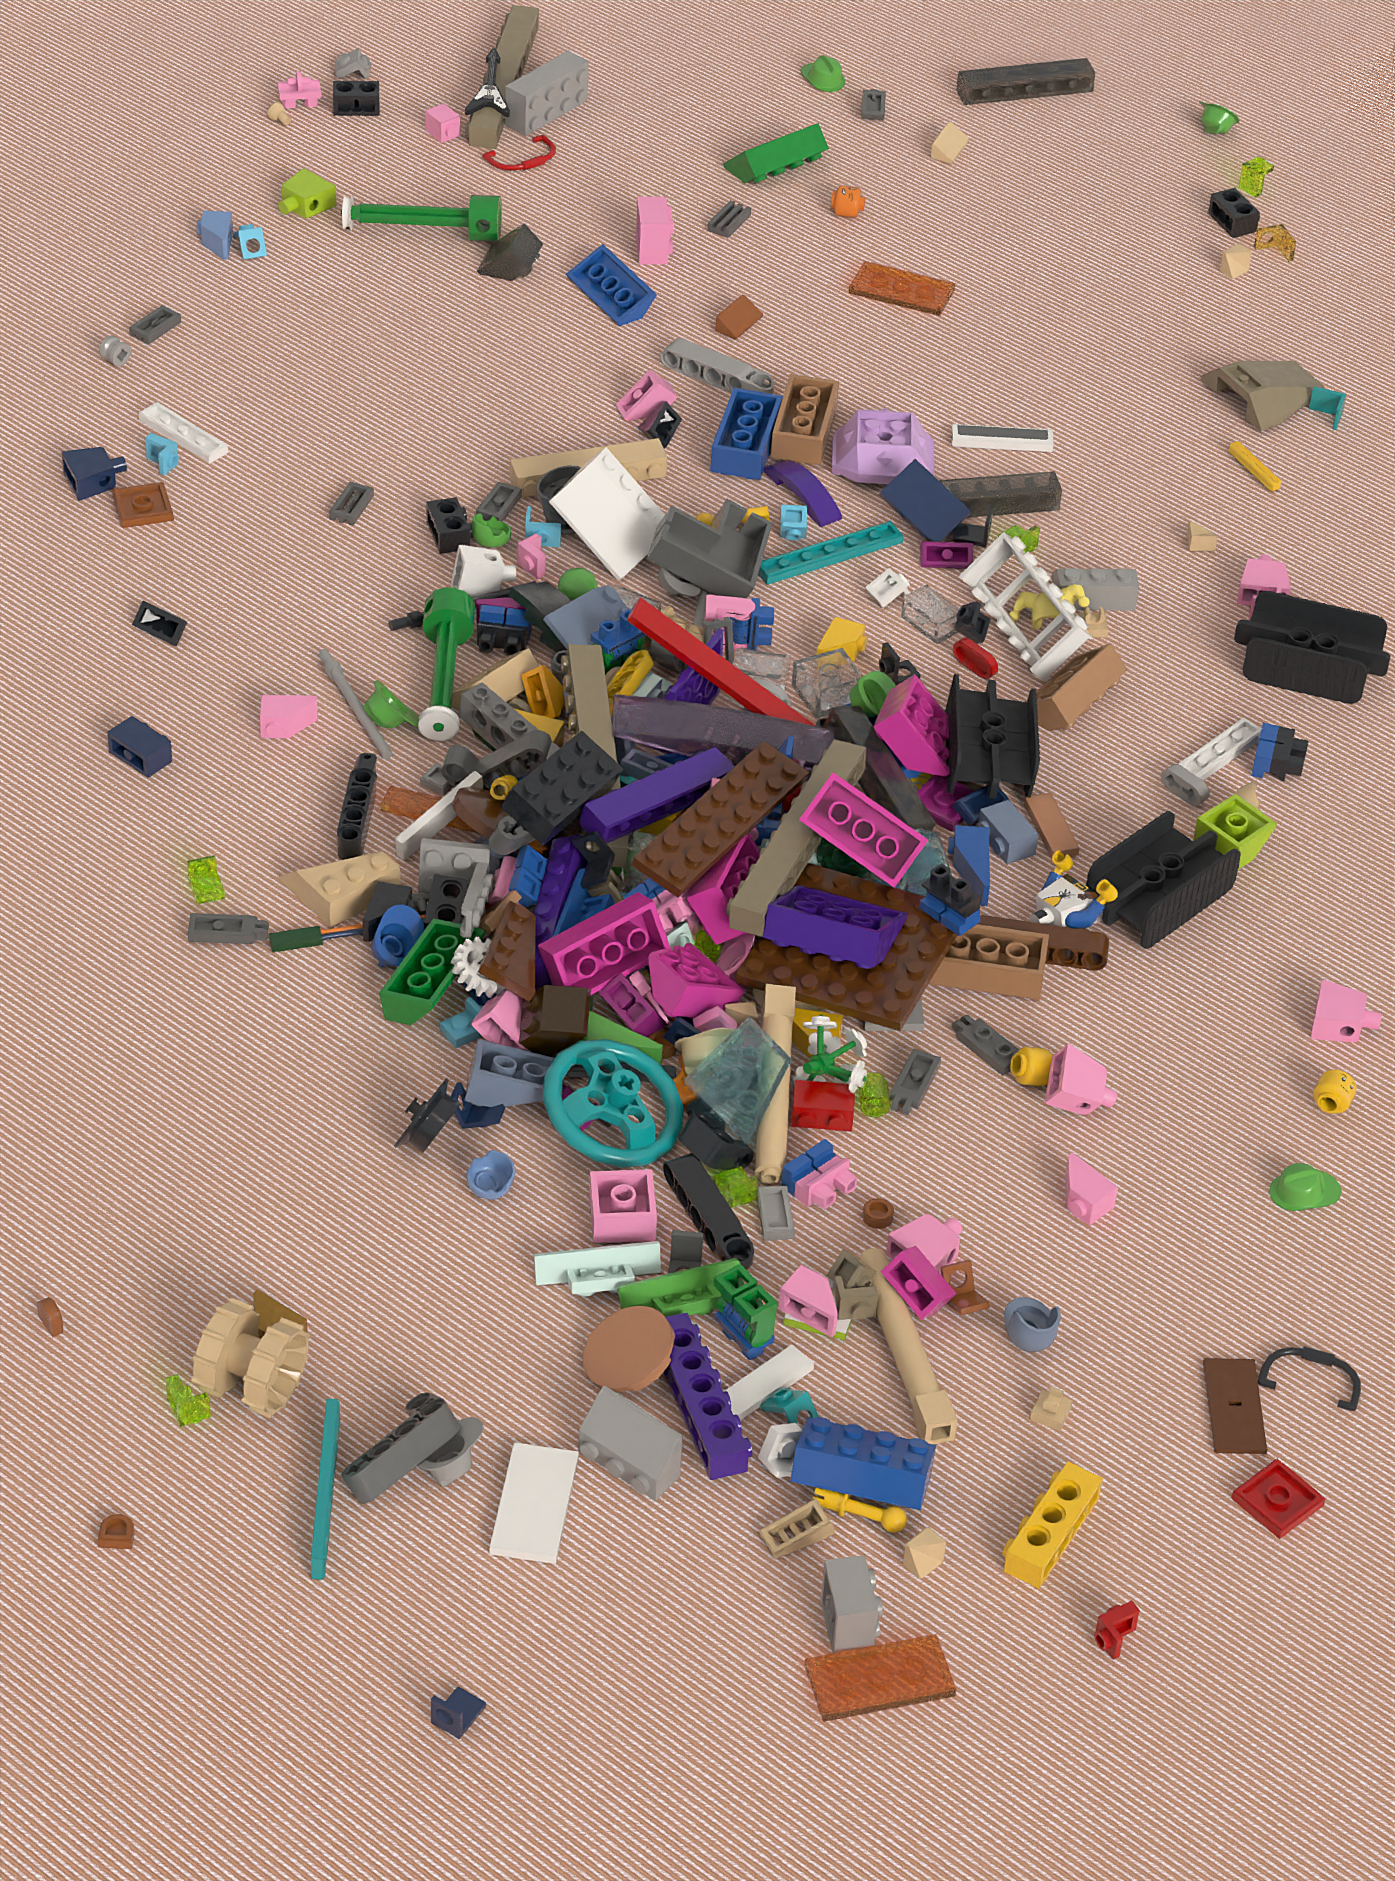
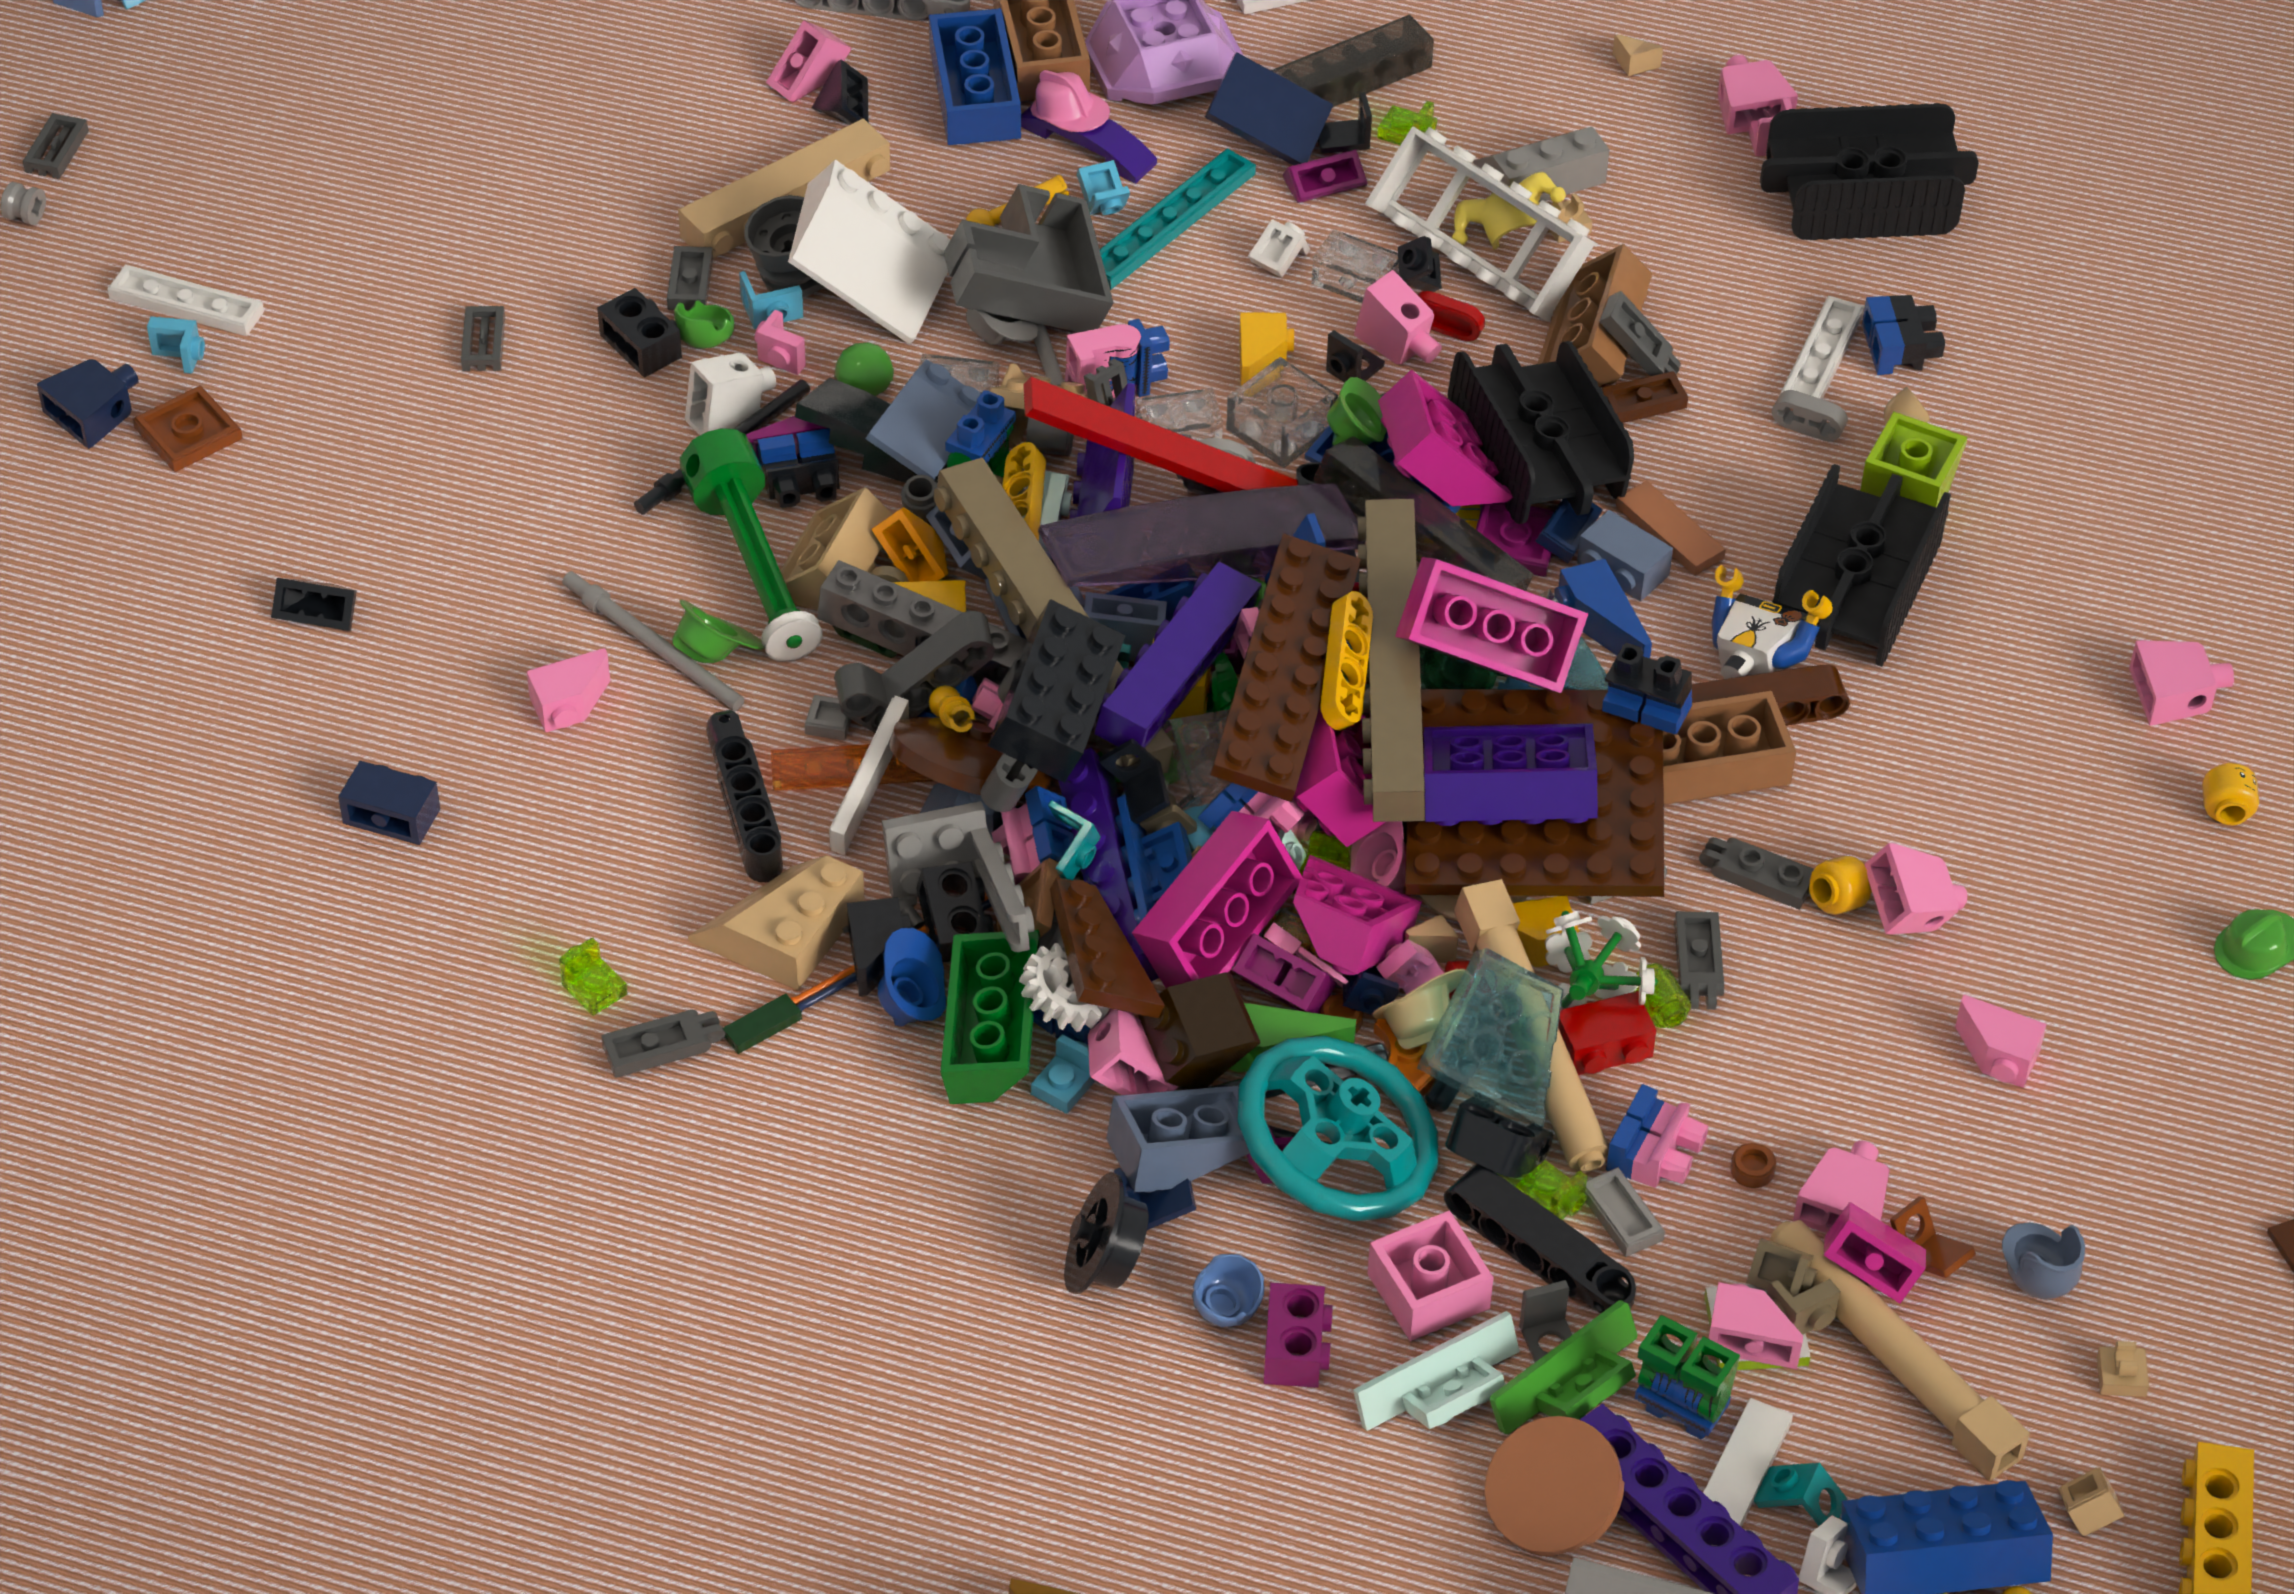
camera: 20 degrees left, 5 degrees up
(519, 1214) = (1296, 1335): none -> magenta brick
(535, 889) = (1082, 847): none -> teal bracket
(761, 826) = (1342, 700): none -> yellow beam
(797, 464) = (1067, 103): none -> bright pink piece
(935, 649) = (1396, 321): none -> bright pink torso
(981, 1477) = (2091, 1501): none -> tan slope
(1073, 743) = (1646, 396): none -> reddish brown hinge
(1092, 704) = (1638, 336): none -> dark grey hinge

